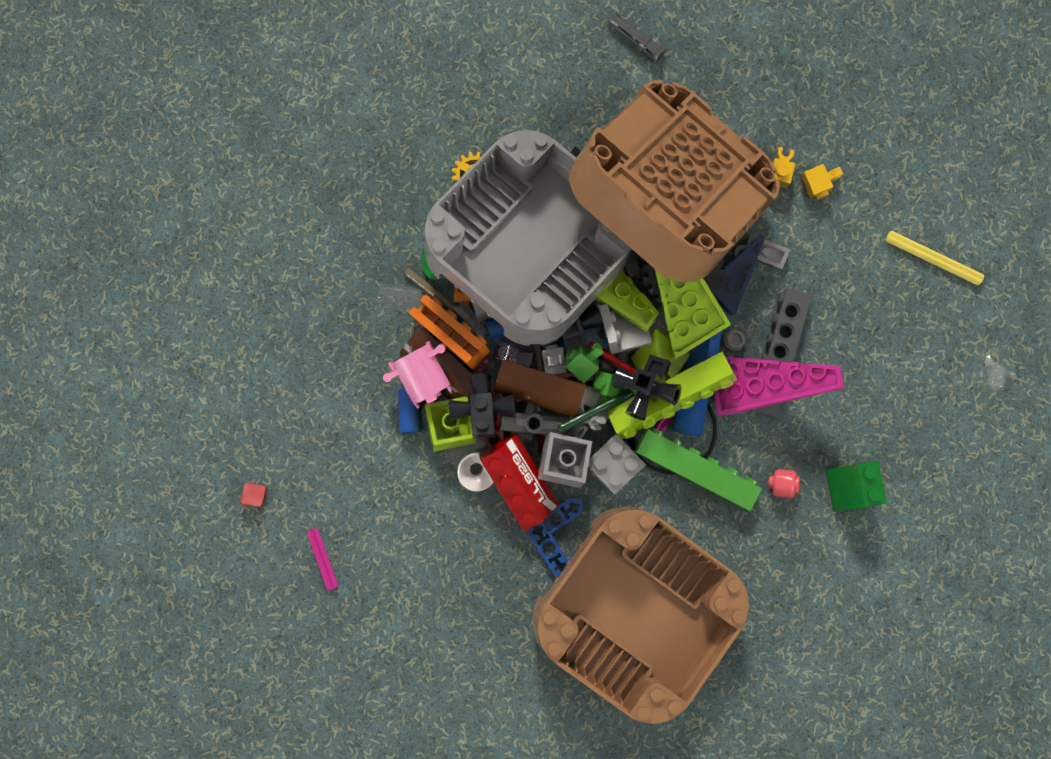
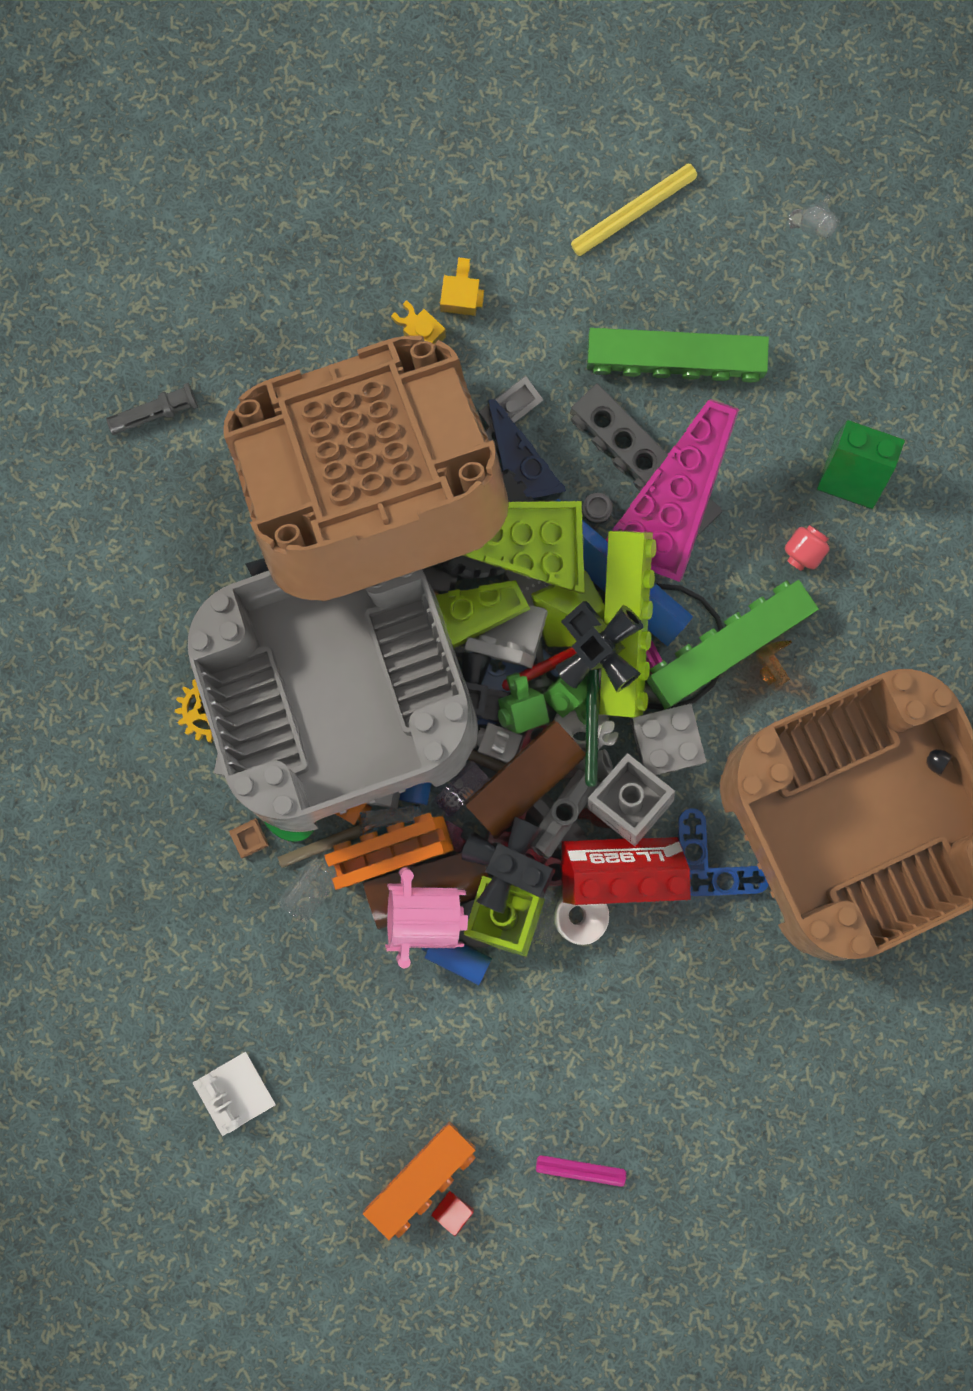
camera: 60 degrees left, 0 degrees up
(252, 322) = (234, 1093): none -> white hinge
(261, 463) = (419, 1180): none -> orange brick
(410, 244) = (249, 838): none -> medium nougat tile
(696, 504) = (772, 670): none -> clear orange plate
(698, 638) = (938, 760): none -> black hinge
(859, 334) = (677, 353): none -> bright green brick

